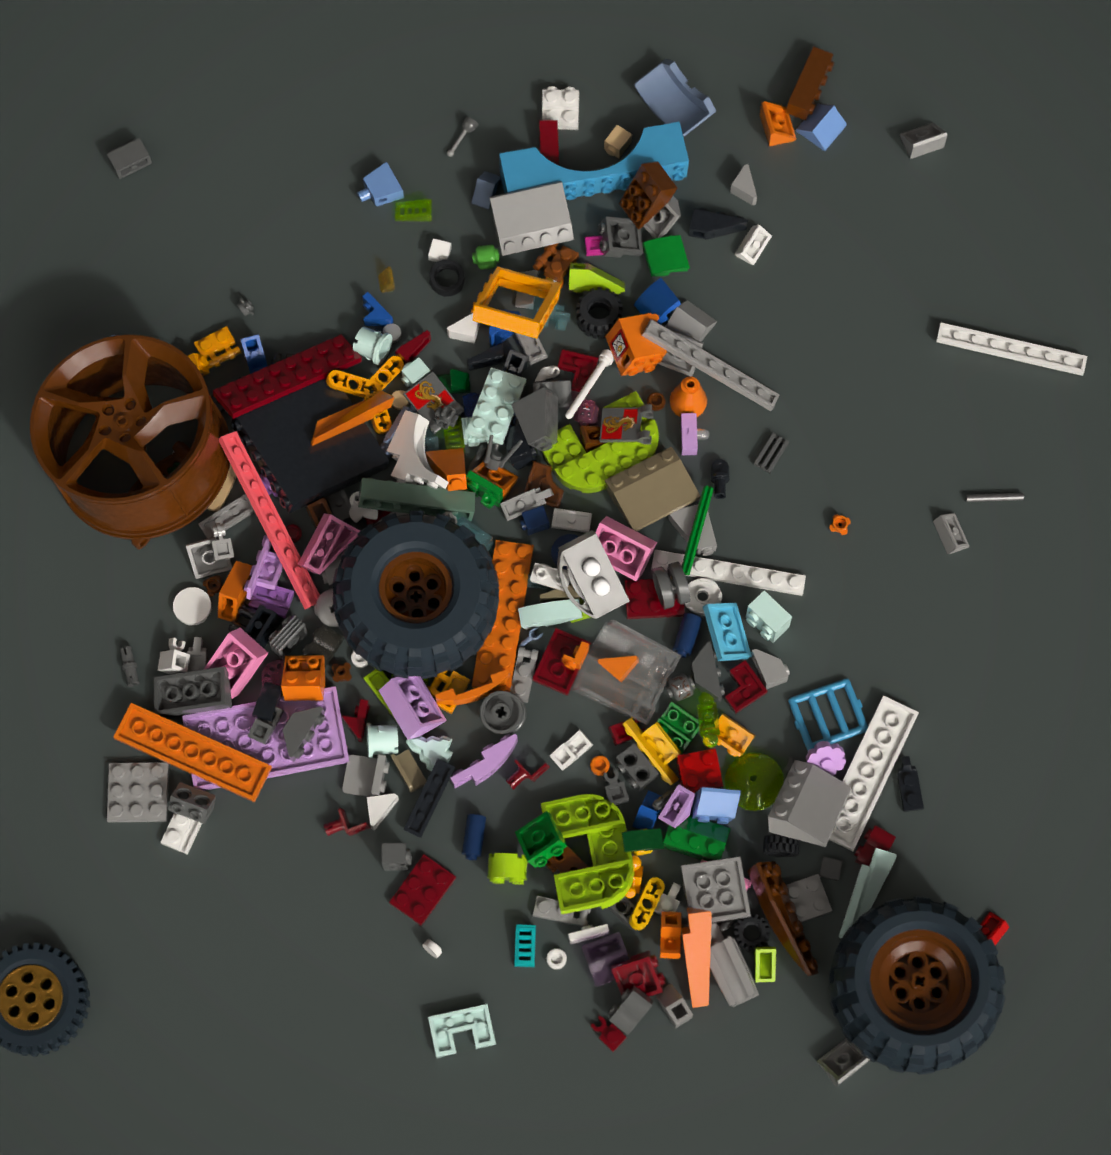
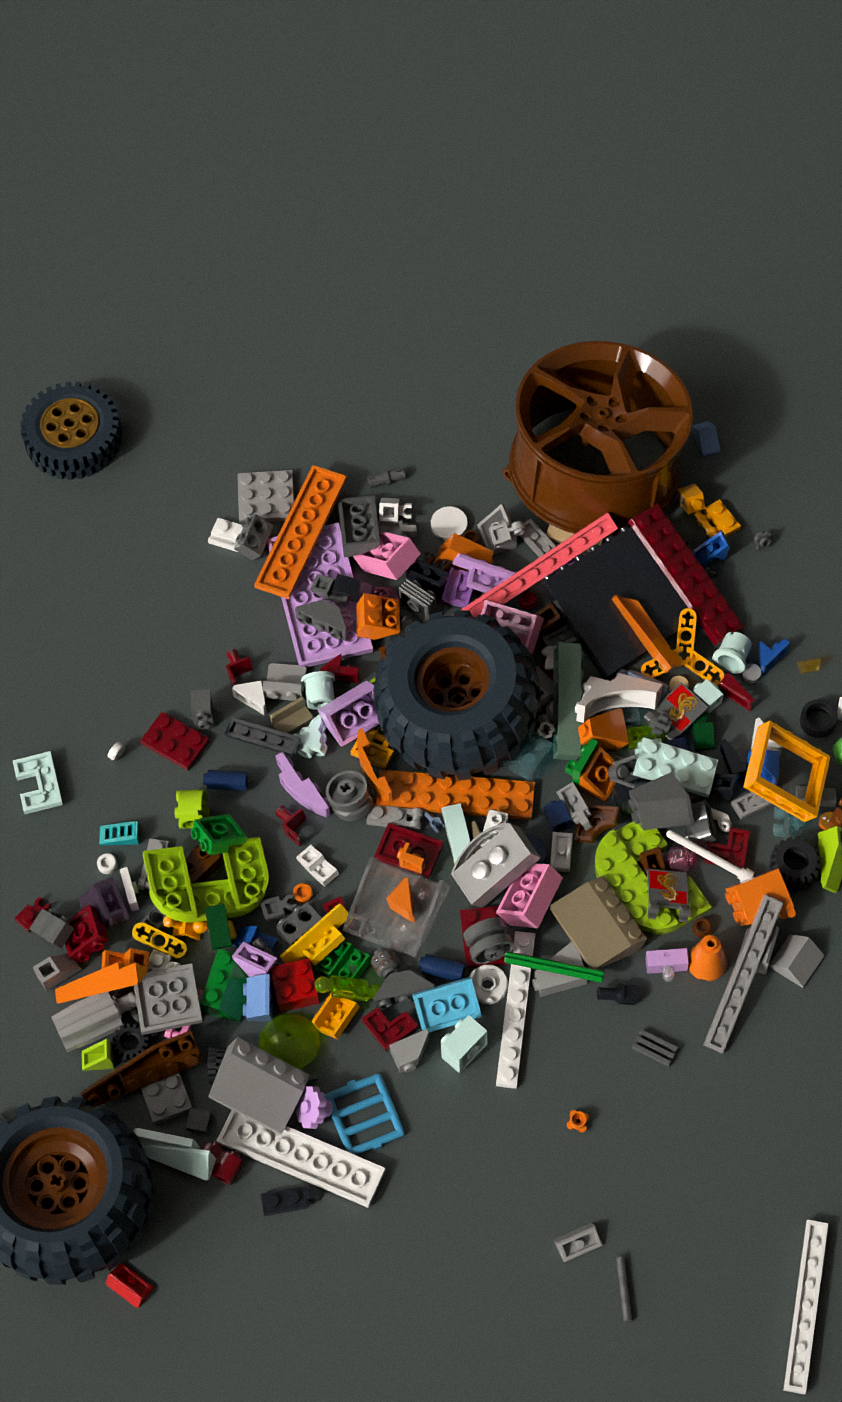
camera: 90 degrees right, 10 degrees down
(657, 300) = (813, 920): blue slope -> none

